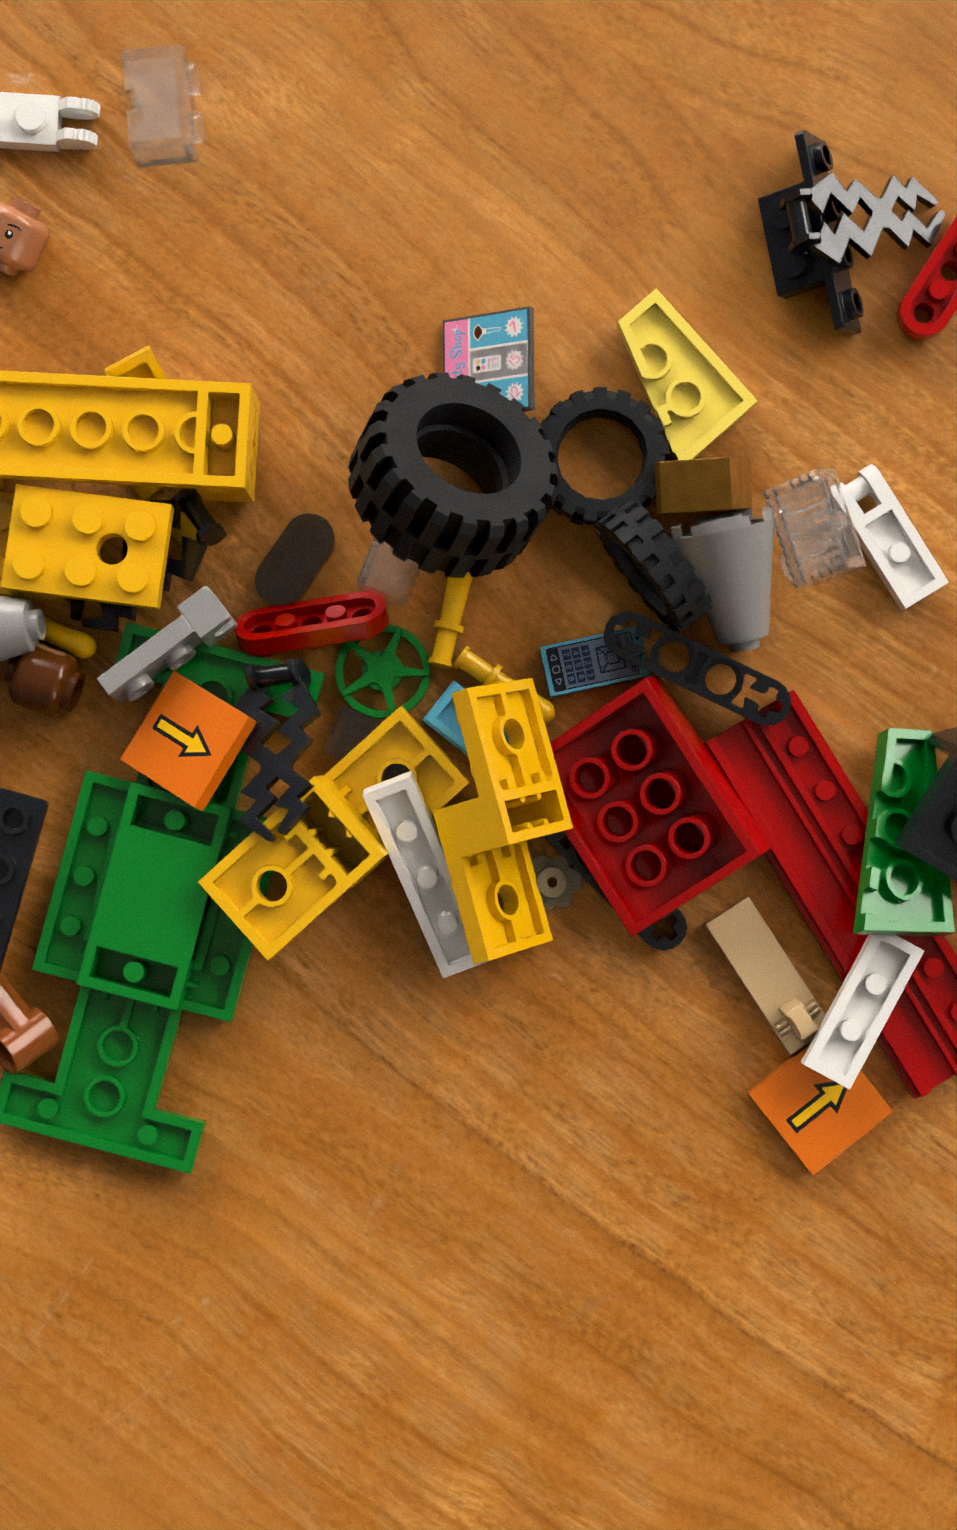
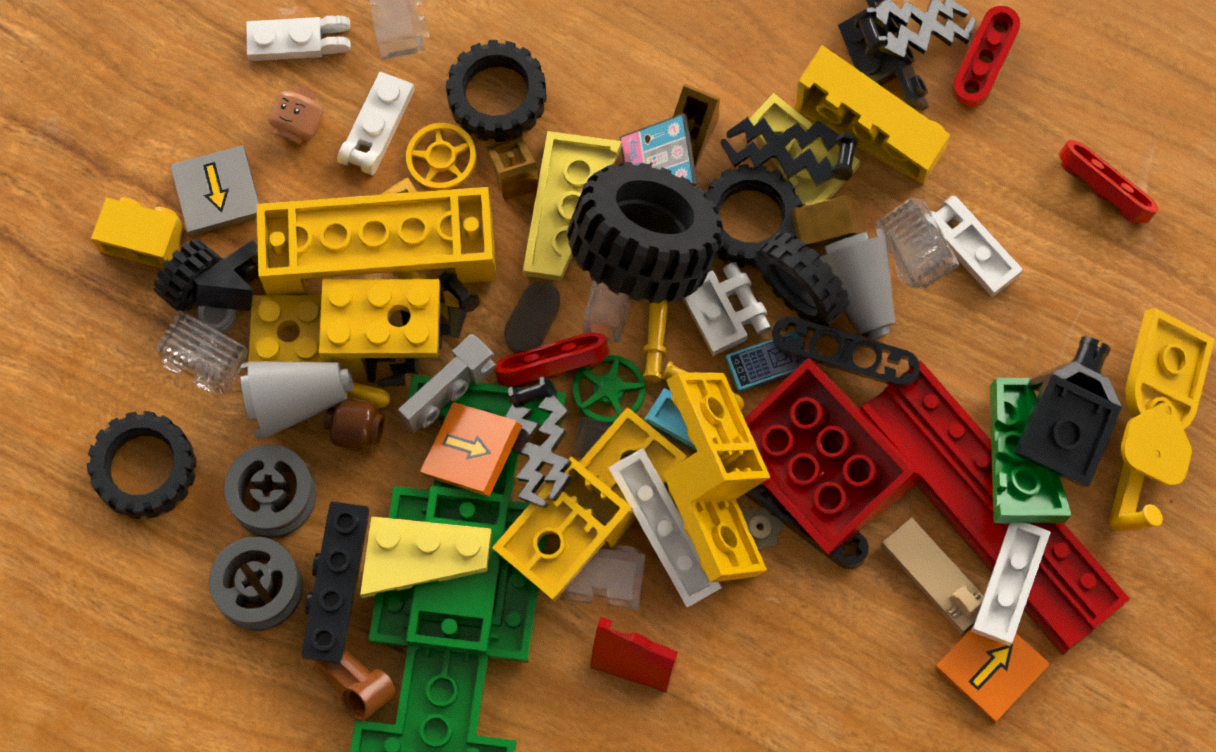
camera: 10 degrees left, 15 degrees down
(106, 873) = (421, 552): none -> light yellow wing
(120, 259) = (376, 123): none -> white plate
(201, 318) = (441, 156): none -> yellow wheel
(267, 186) = (488, 56): none -> black tyre
(294, 347) = (513, 168): none -> pearl gold slope
(357, 925) = (610, 575): none -> clear brick
(365, 362) = (564, 171): none -> light yellow wing
(365, 1037) = (632, 657): none -> red slope
(534, 590) = (715, 316): none -> white plate
(554, 311) = (702, 116): none -> pearl gold slope
(647, 372) = (776, 149): none -> black piece
(779, 340) = (879, 120): none -> yellow wedge

